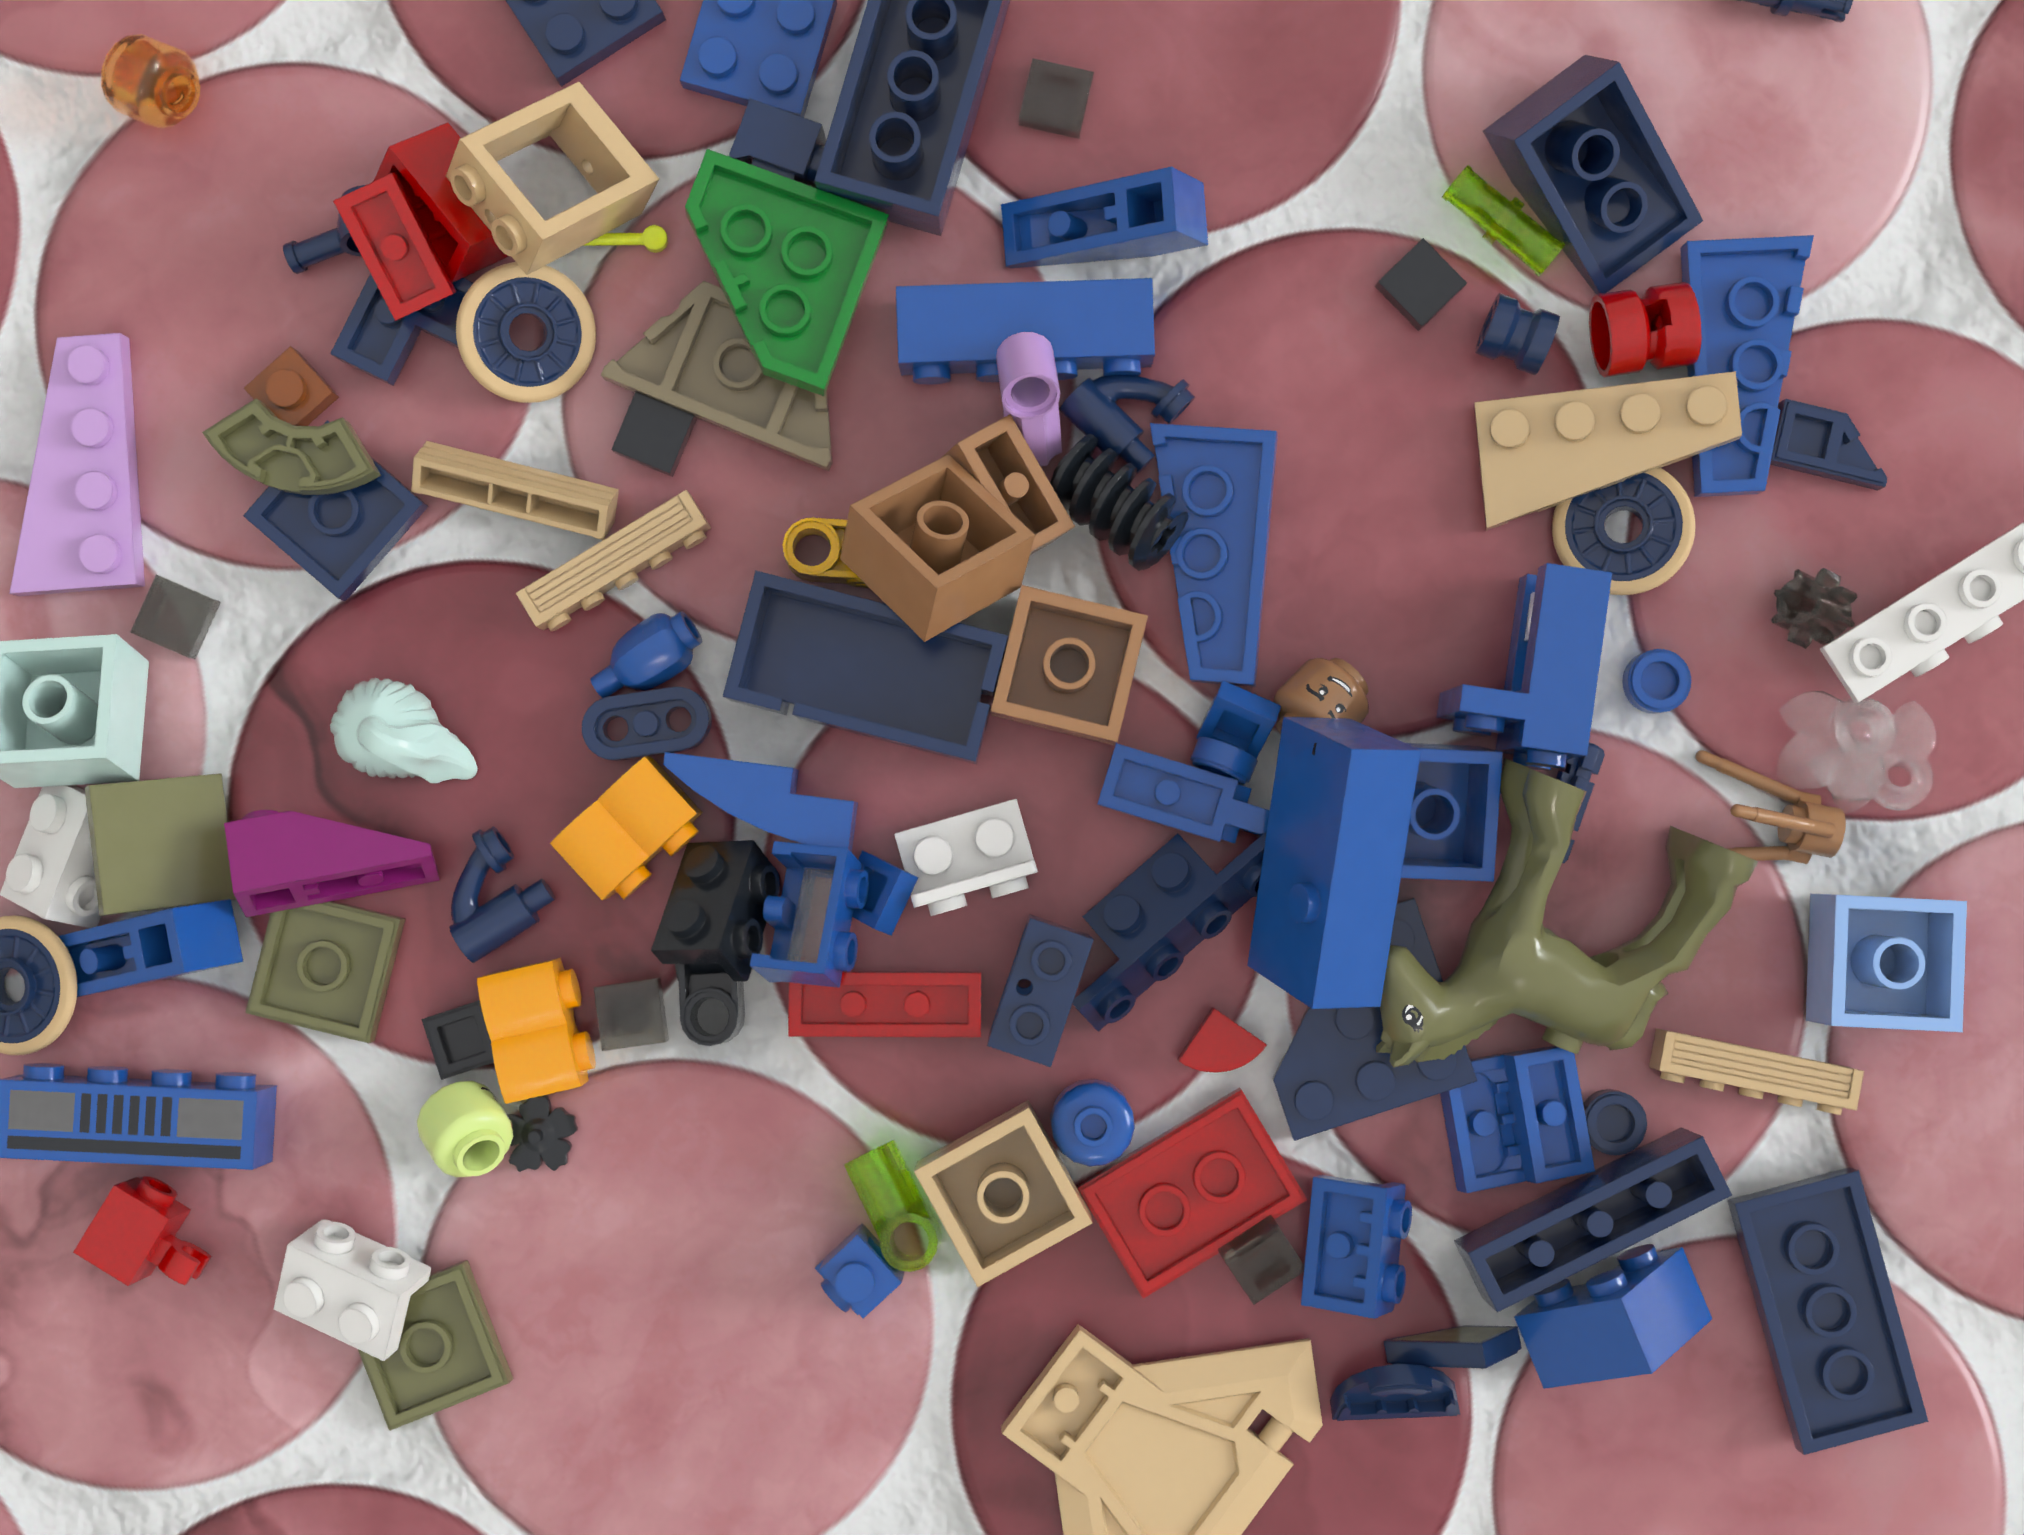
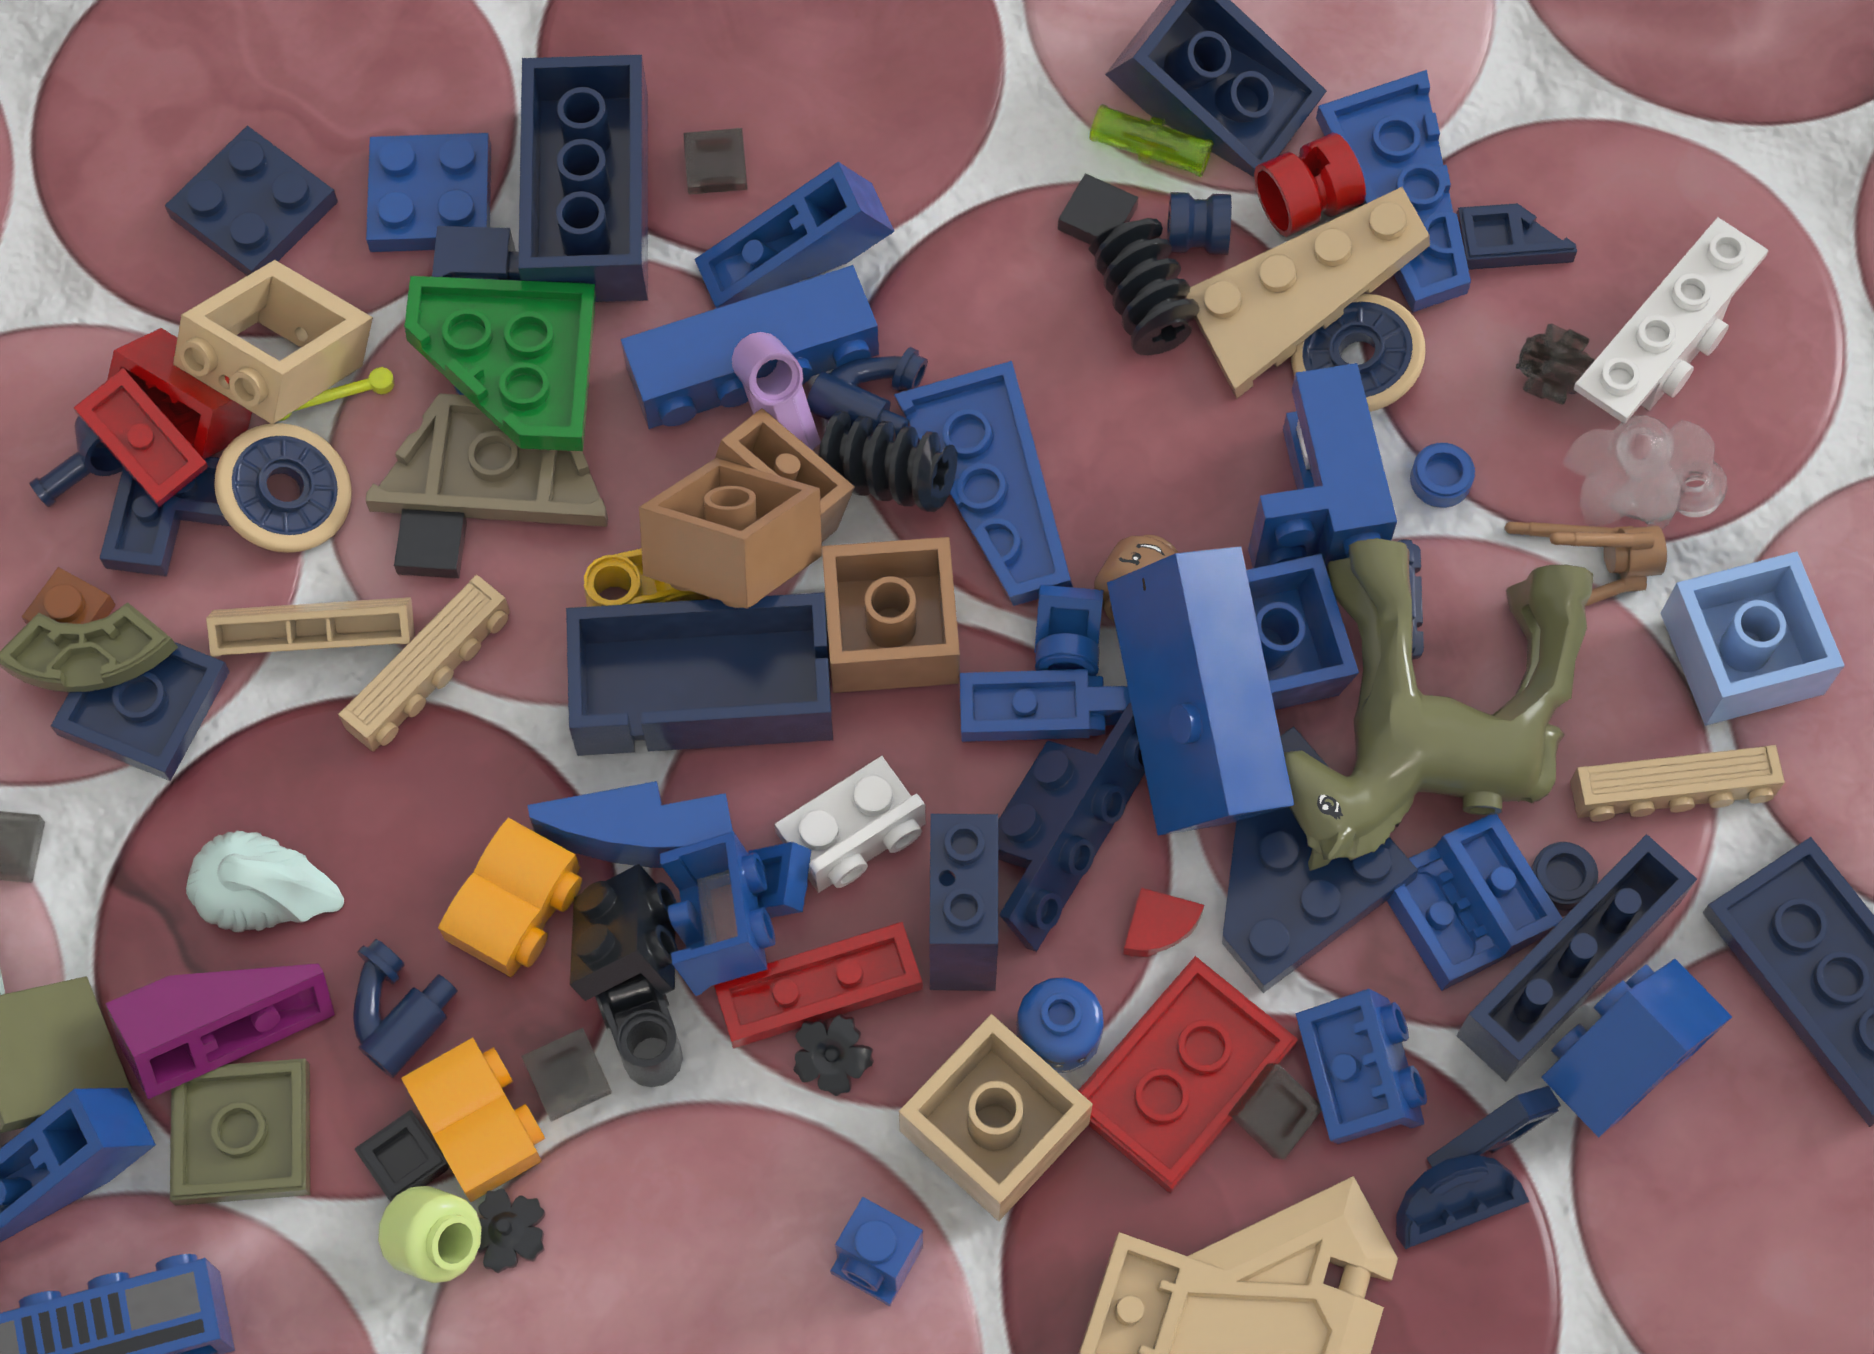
camera: 20 degrees left, 20 degrees down
(647, 722) = (498, 793): dark blue plate -> none
(649, 654) = (484, 736): blue plant -> none
(877, 1073) = (831, 1054): none -> black plant
(891, 1200) = (889, 1170): clear neon green piece -> none
(1437, 387) = (1145, 285): none -> black piece

